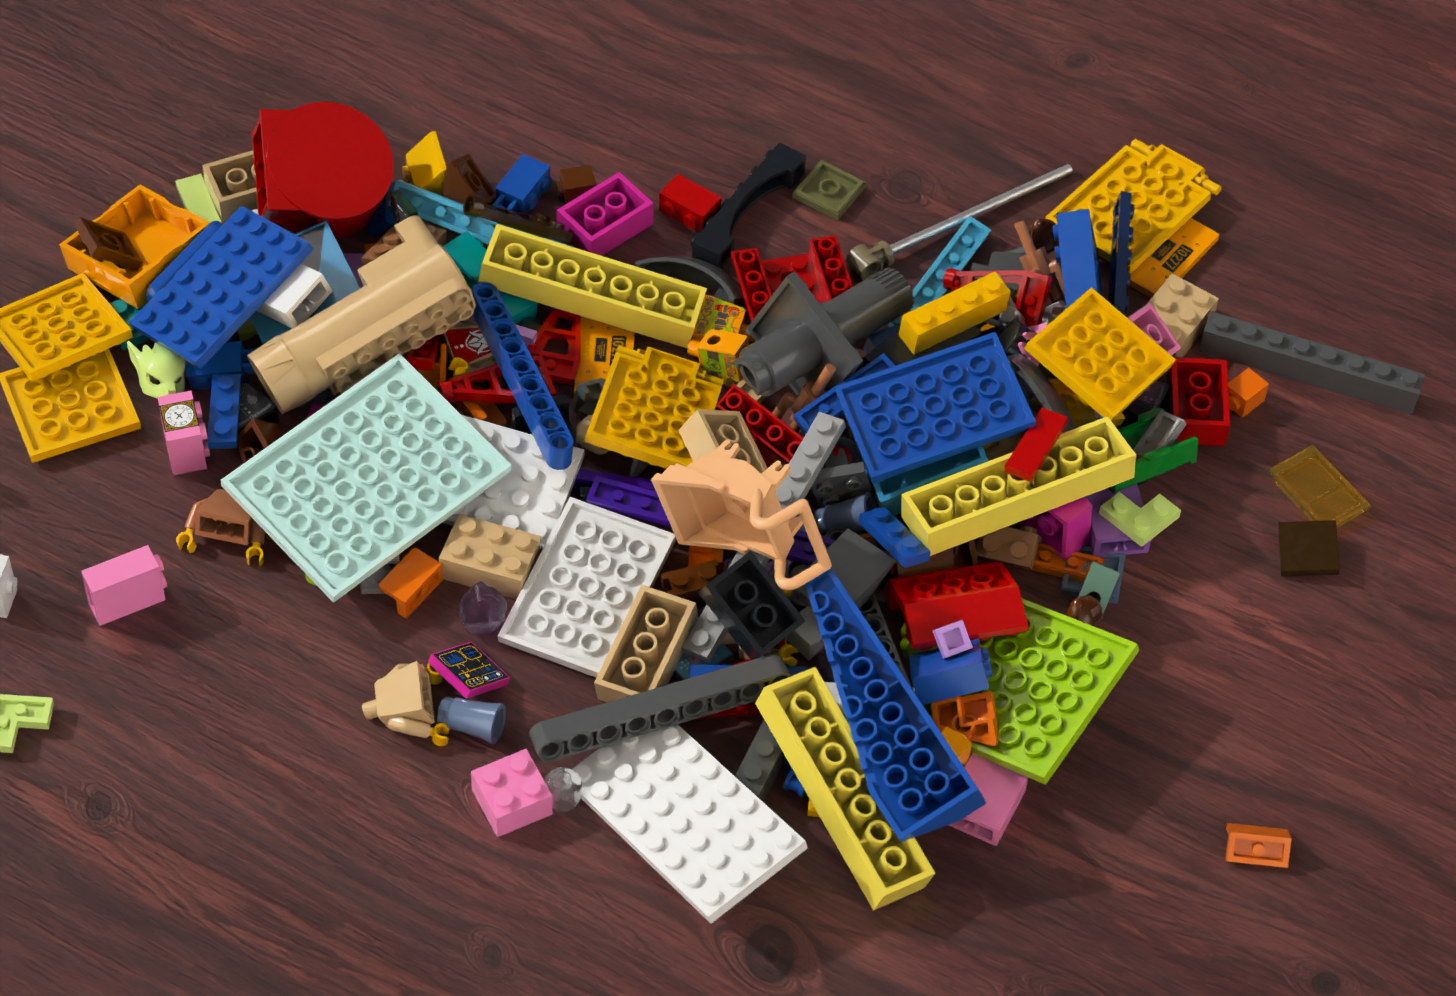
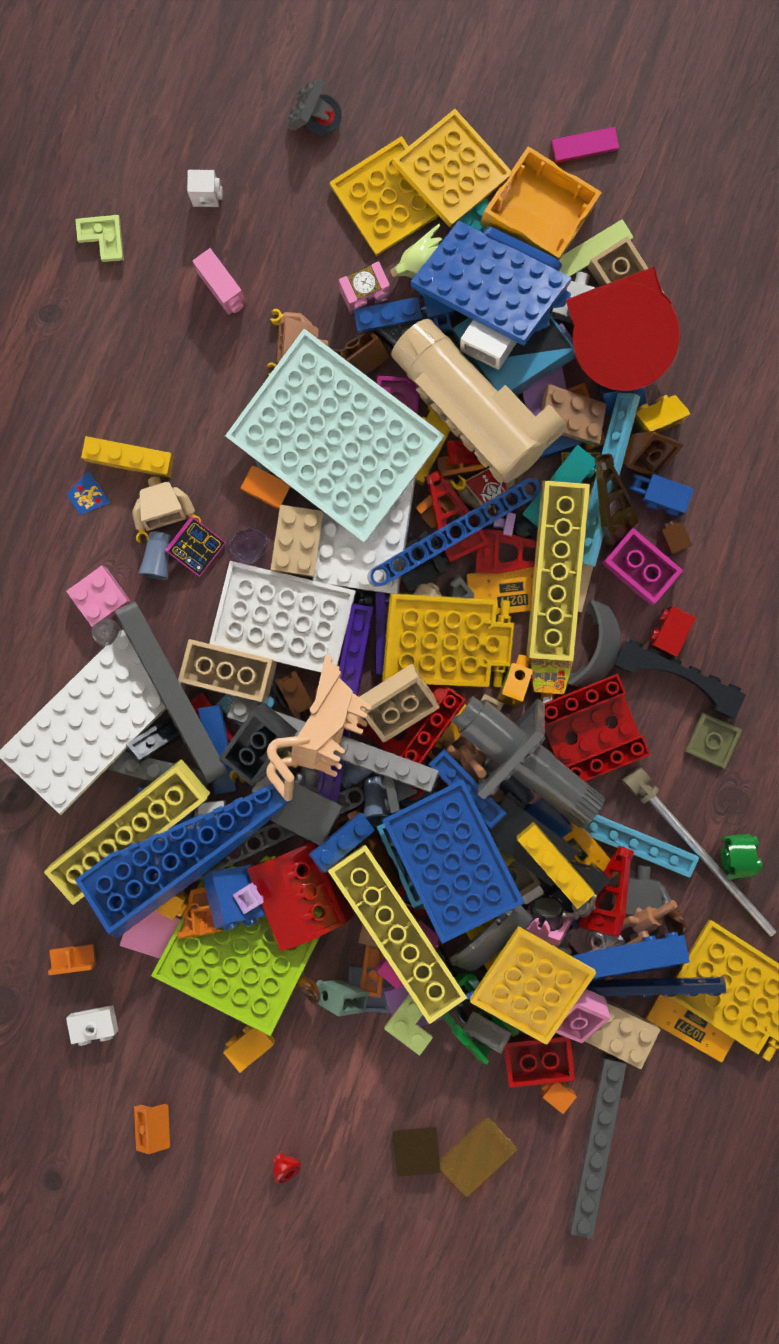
camera: 80 degrees right, 35 degrees up
(71, 202) = (585, 144): none -> dark pink tile
(108, 244) = (532, 183): reddish brown plate -> none
(327, 730) = (128, 457): none -> yellow brick
(364, 798) = (87, 494): none -> blue sticker
(400, 206) = (602, 407): clear green tile -> none
(720, 742) = (153, 740): none -> black plate
(971, 174) = (740, 856): none -> green brick
(1012, 905) = (72, 959): none -> orange panel
(1036, 444) = (425, 945): red tile -> none
(1107, 890) = (92, 1025): none -> white brick
(1154, 710) = (247, 1047): none -> light orange brick
(1320, 693) = (285, 1168): none -> red brick

